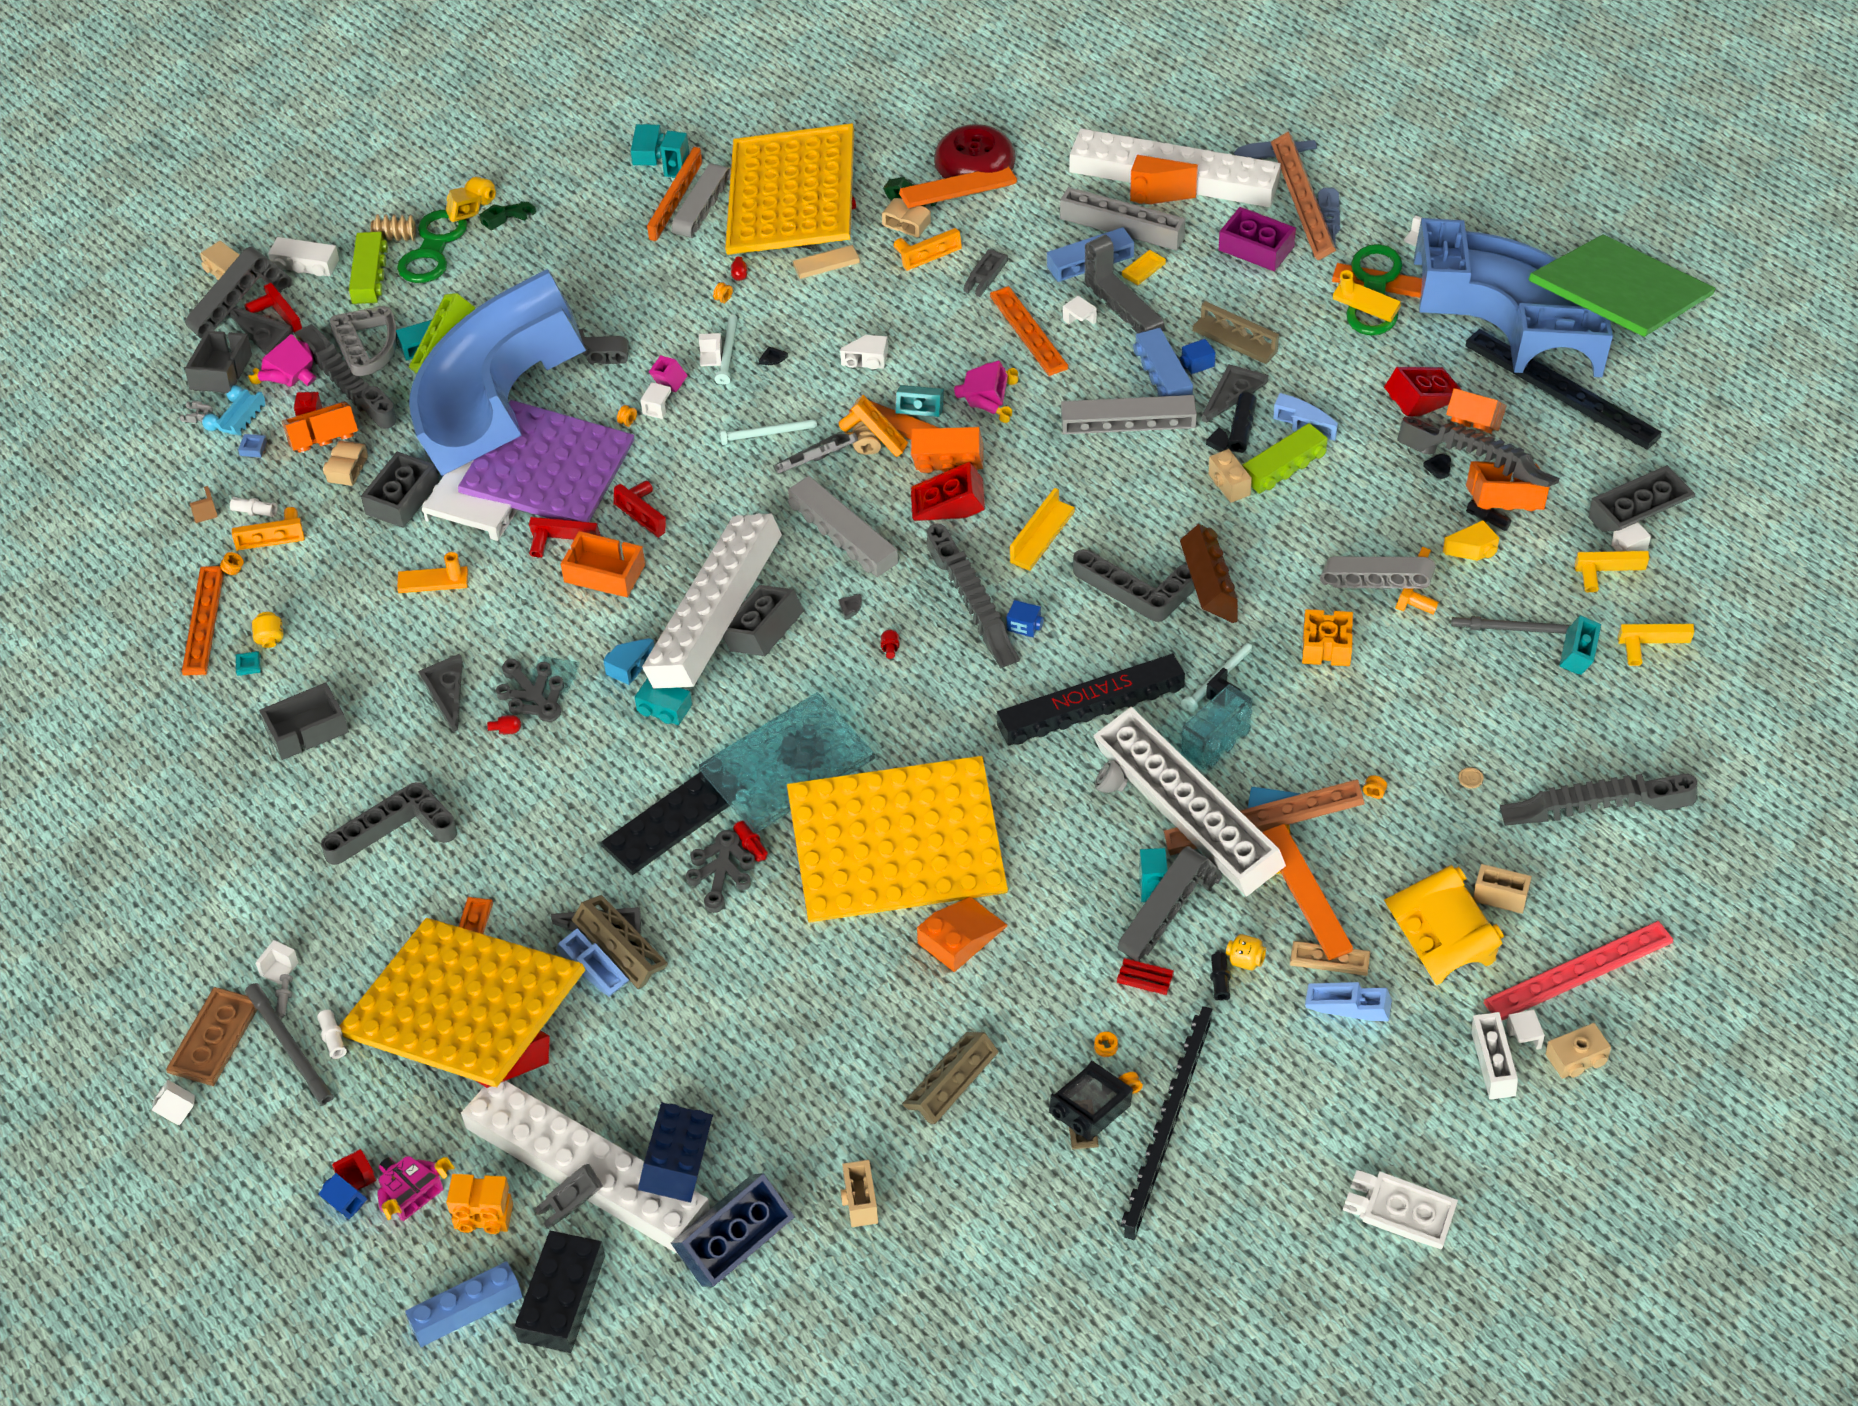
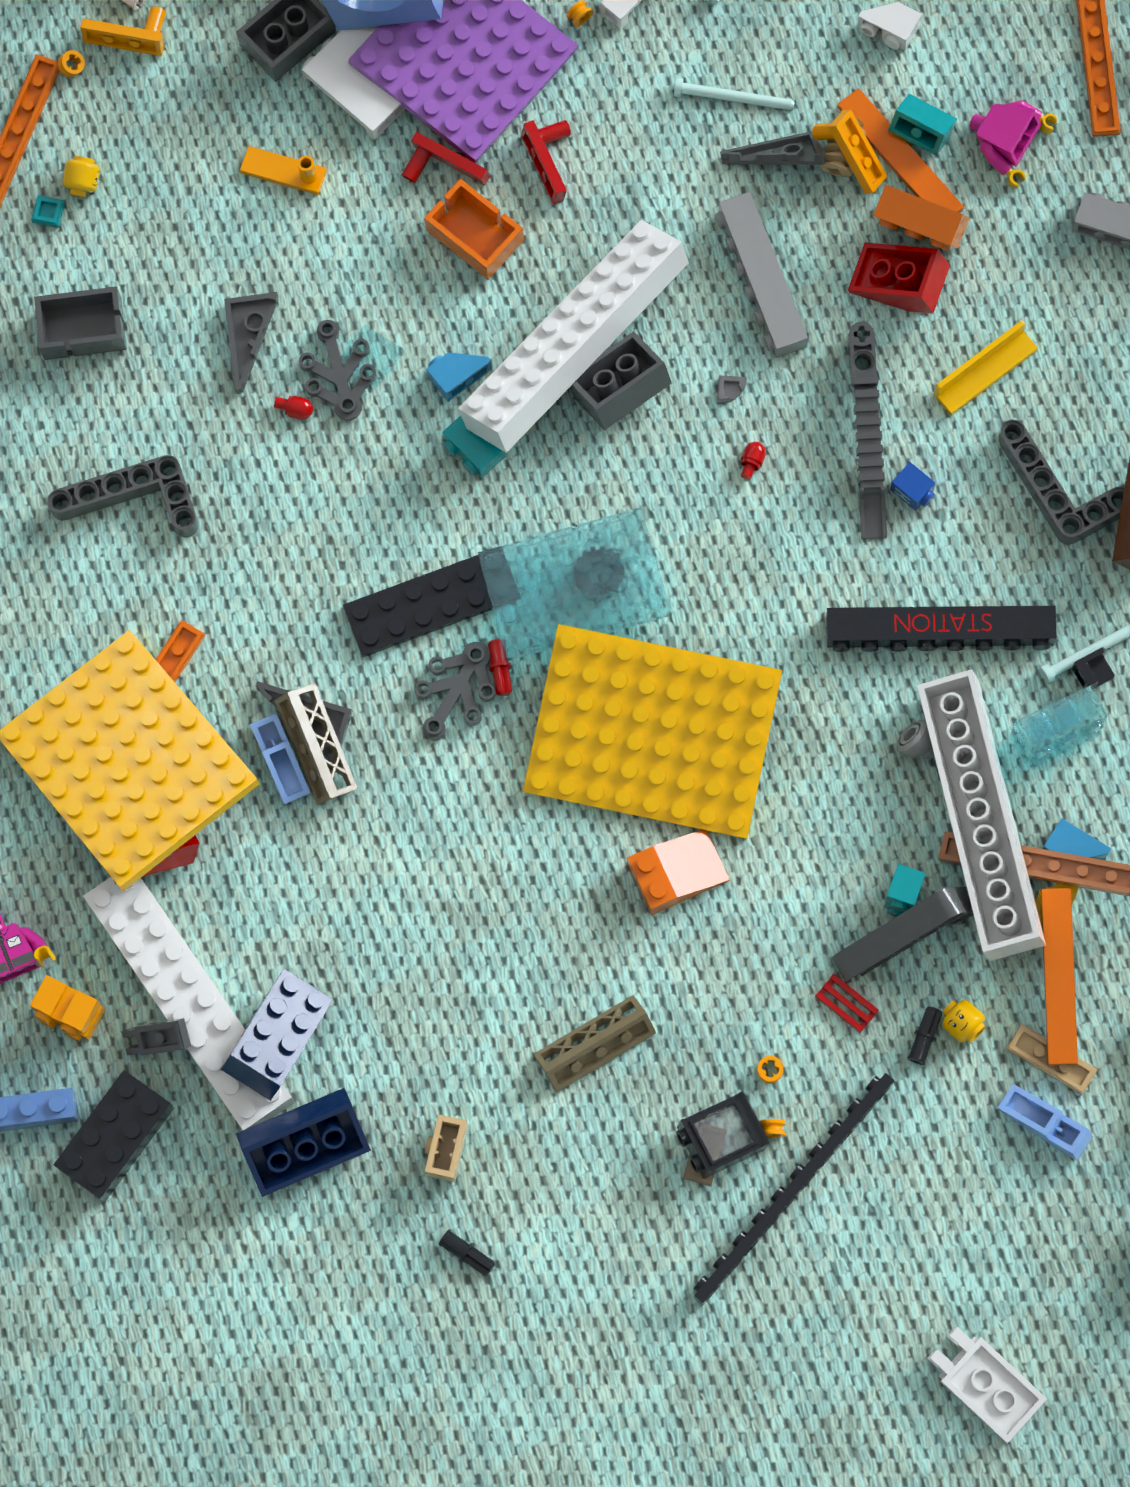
camera: 25 degrees right, 25 degrees up
(912, 1271) = (467, 1253): none -> black axle

